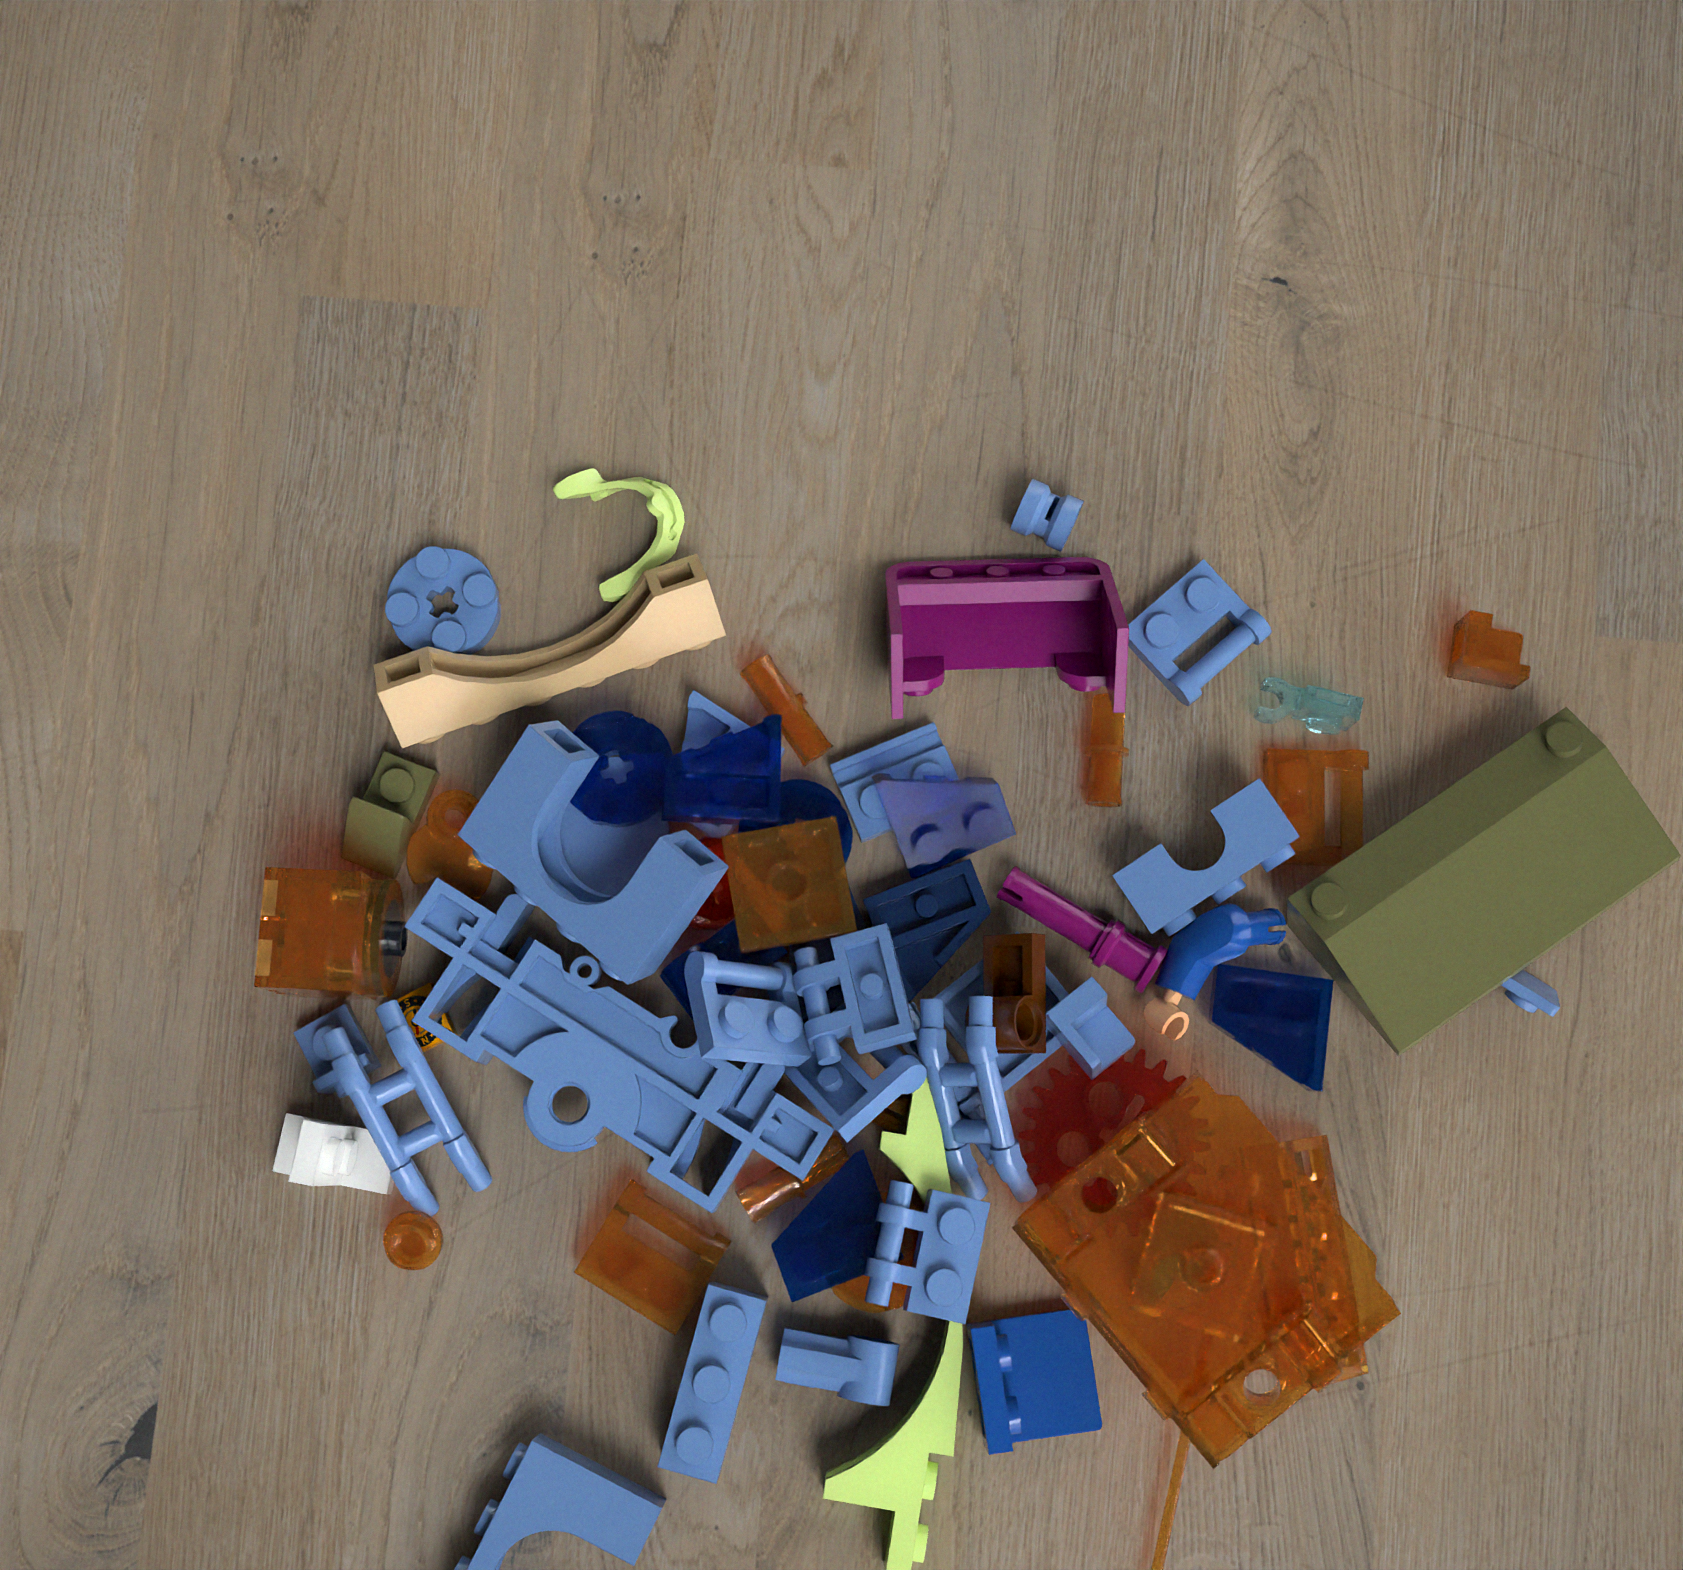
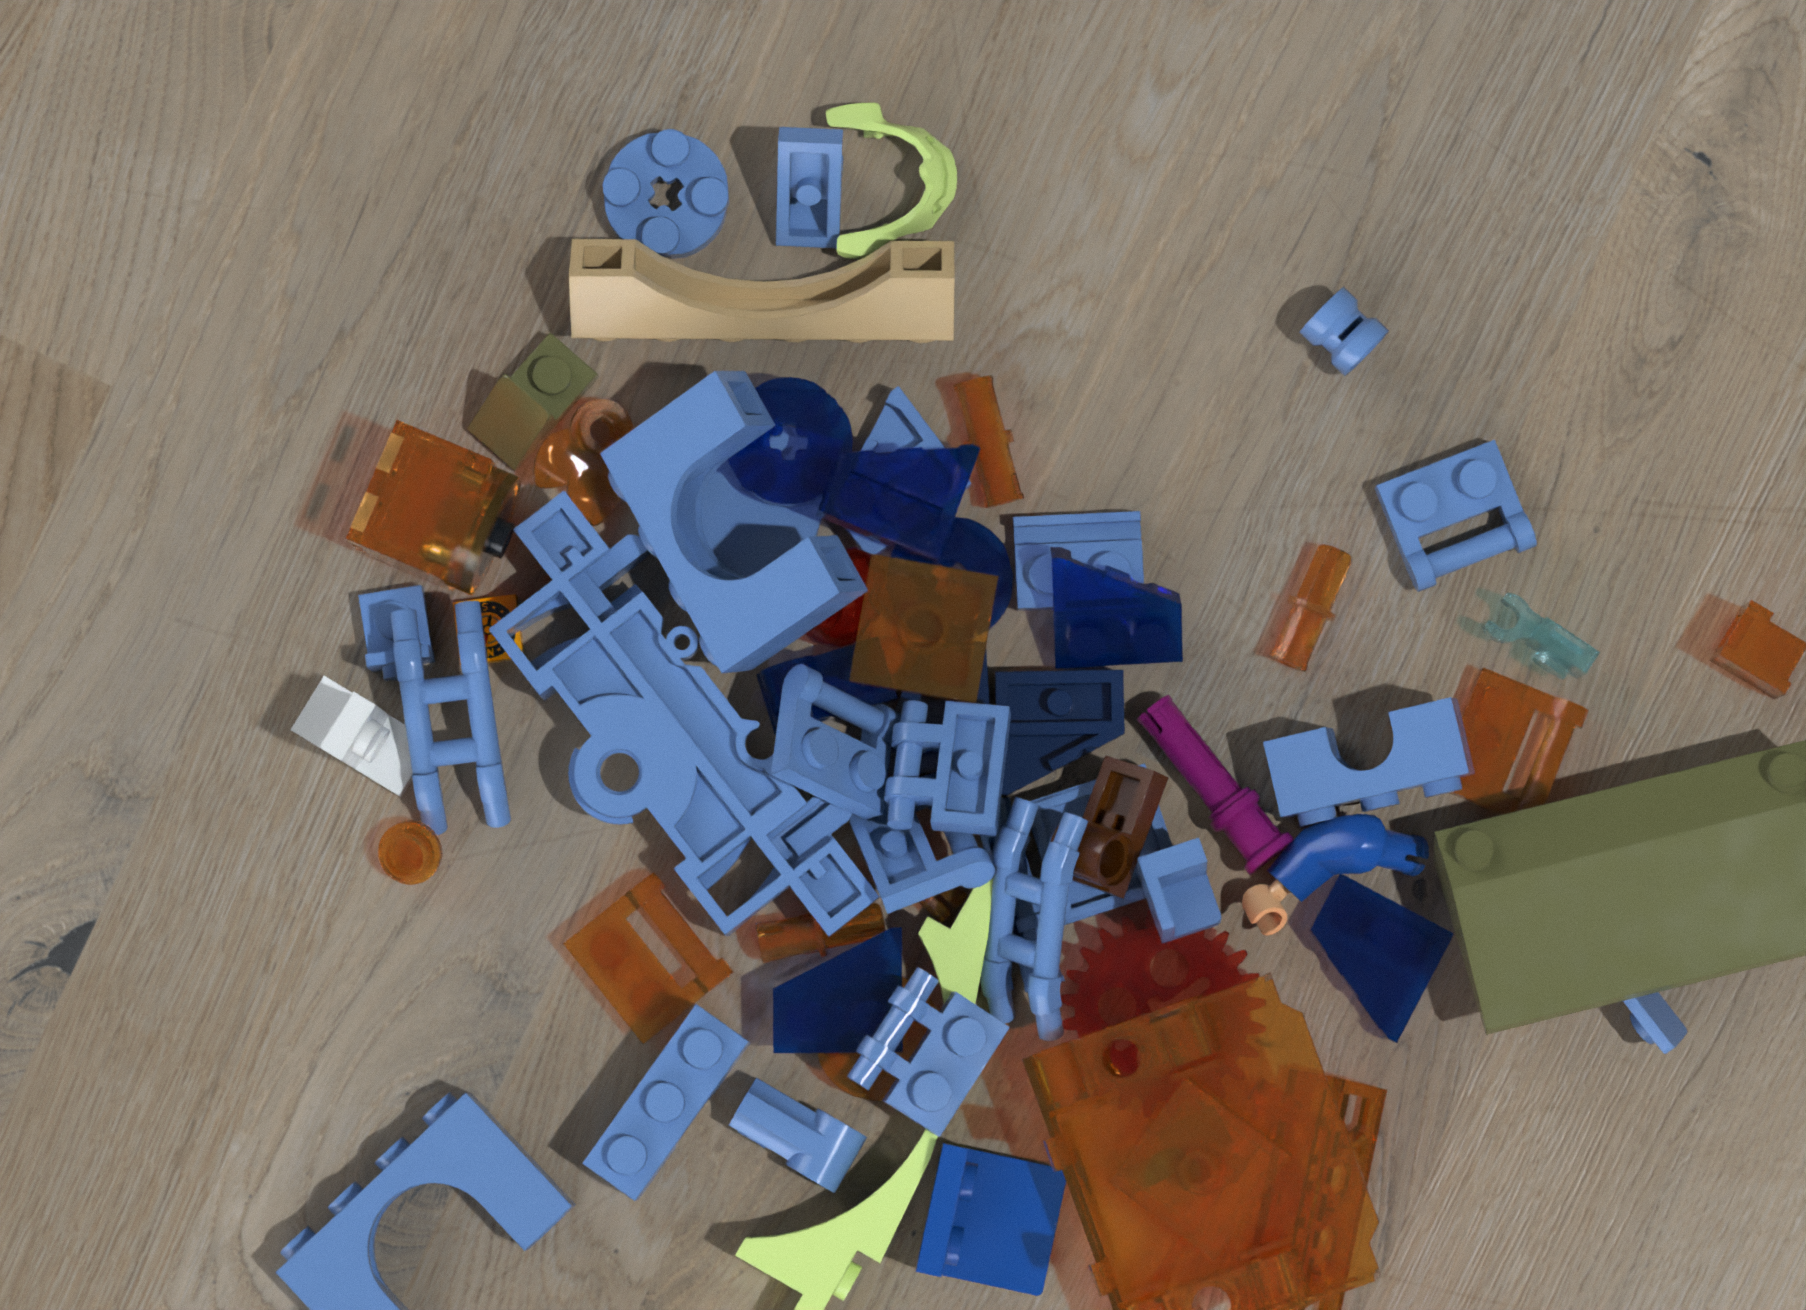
camera: 20 degrees right, 5 degrees up
(559, 552) = (809, 187): none -> medium blue slope
(1005, 618) = (1253, 424): magenta windscreen -> none

